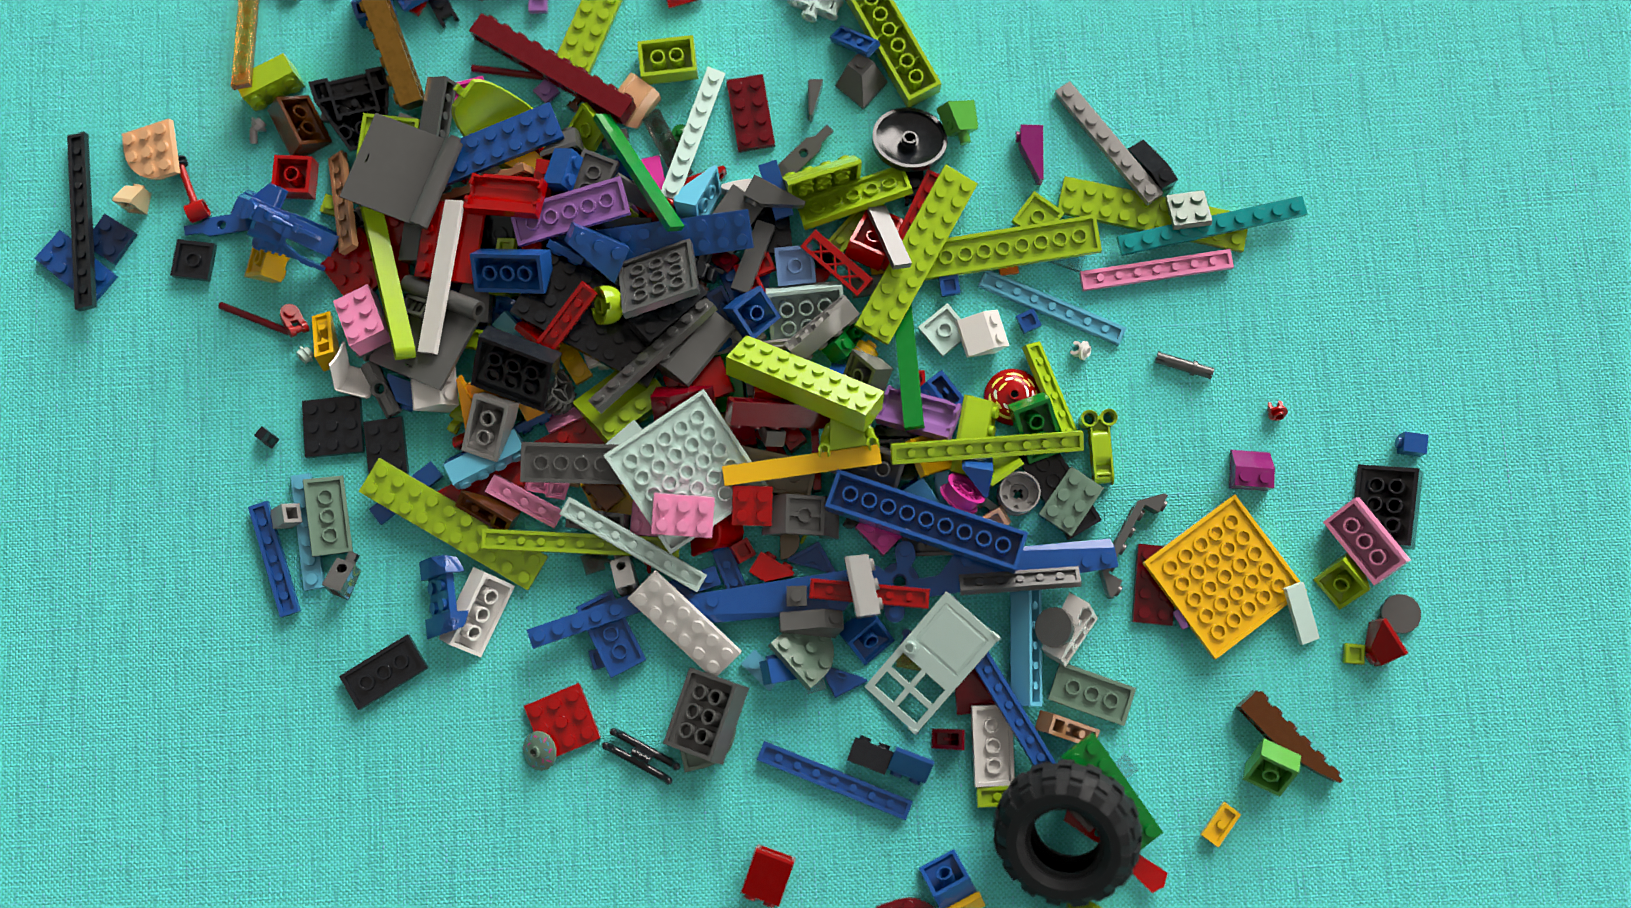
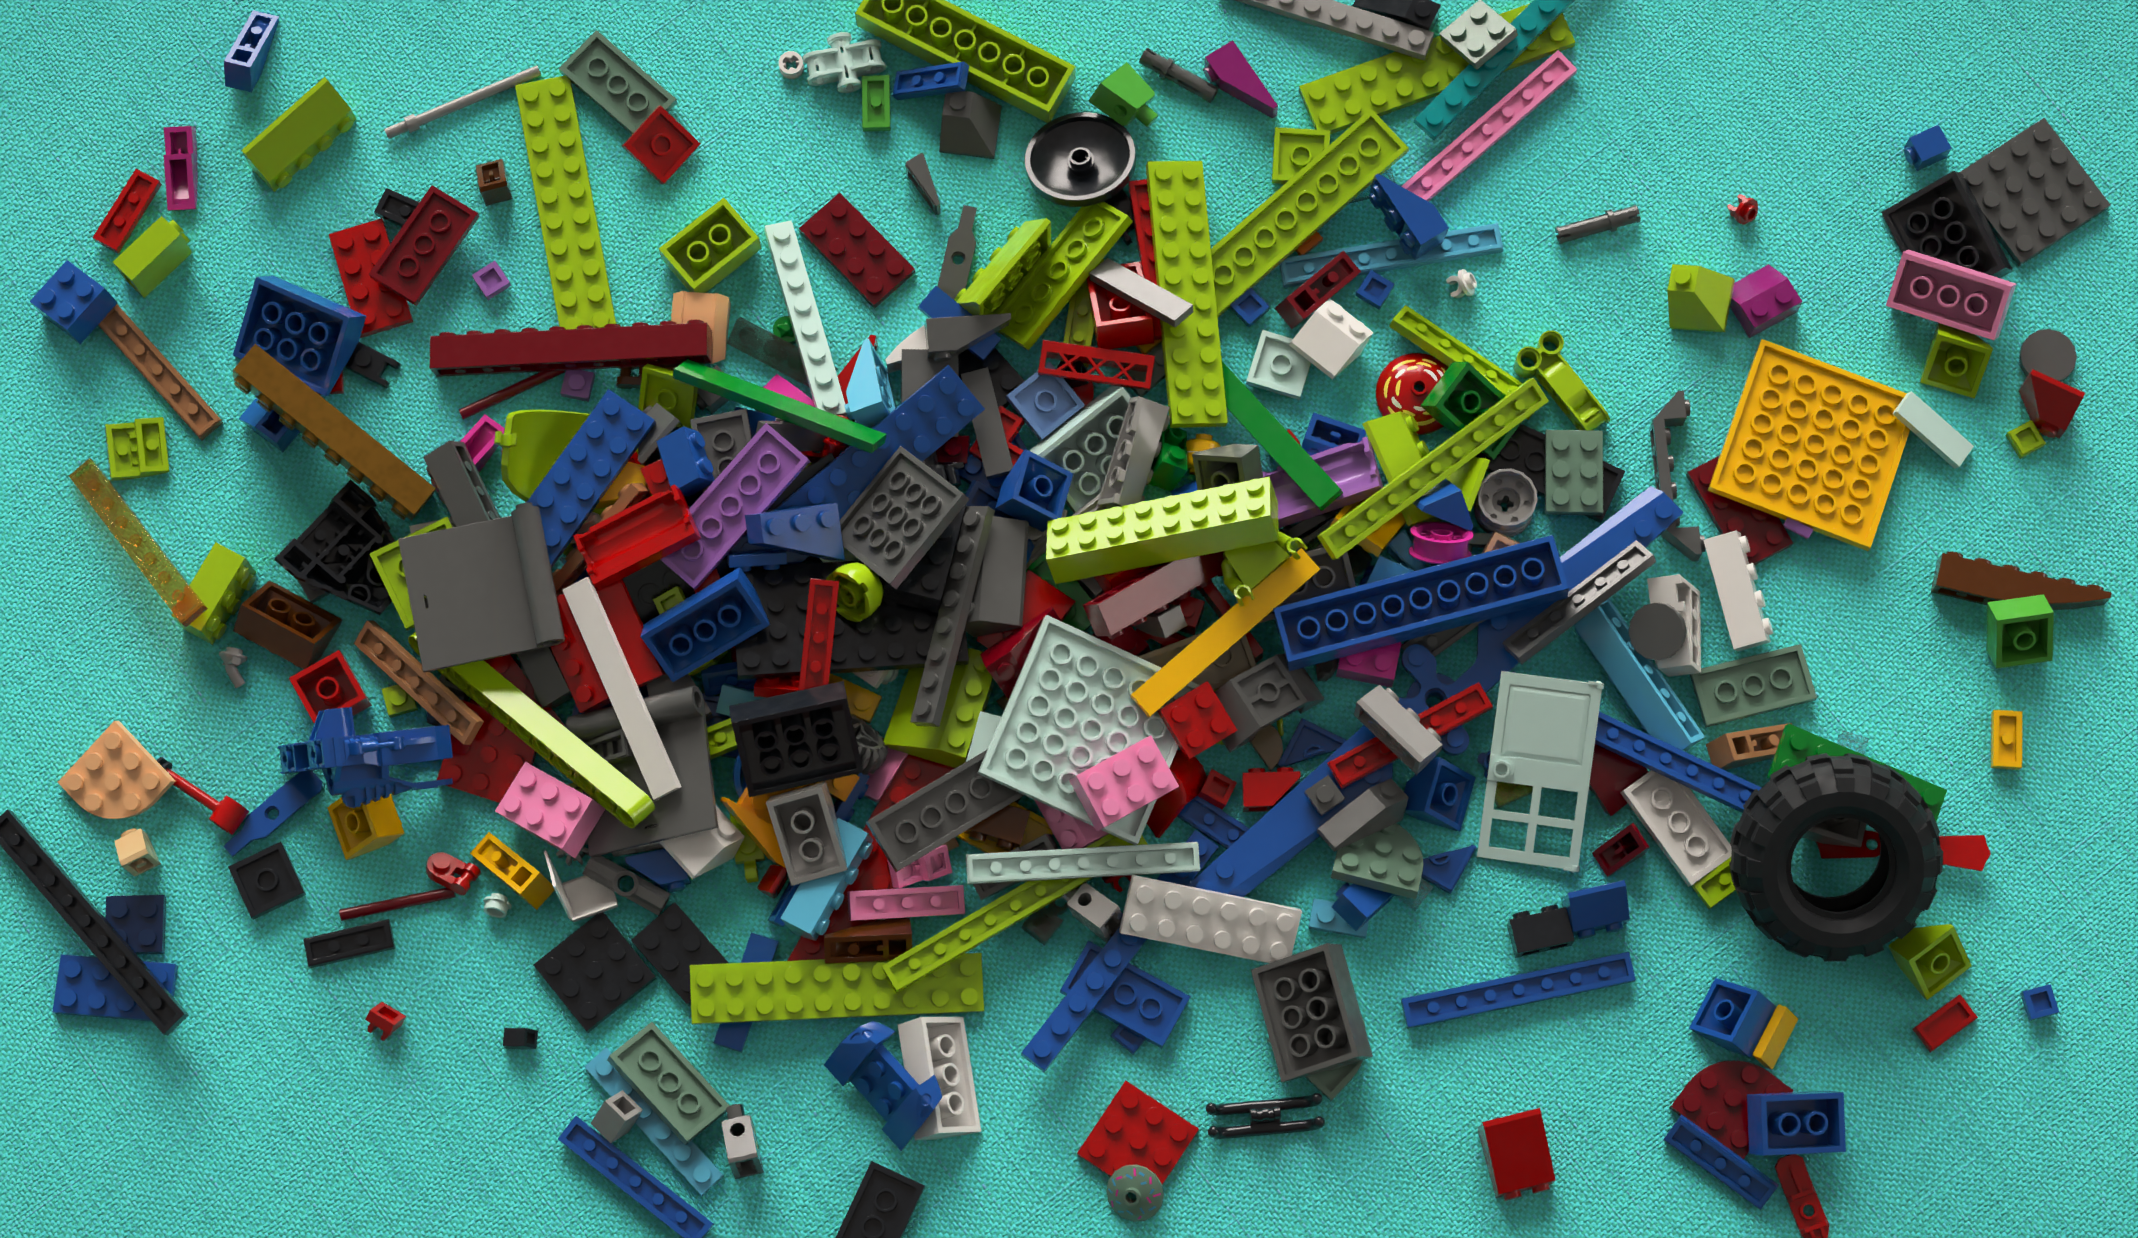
camera: 35 degrees left, 5 degrees down
(202, 378) = (385, 1018): none -> red tile
(214, 324) = (349, 943): none -> black tile
(817, 35) = (876, 103): none -> bright green plate
(994, 300) = (1317, 289): none -> dark red slope
(997, 122) = (1175, 73): none -> dark grey pin
(1075, 291) = (1409, 215): none -> blue slope
(1119, 633) = (1737, 590): none -> white brick
(1214, 446) = (1698, 298): none -> lime slope
(1459, 510) = (2033, 191): none -> dark grey plate

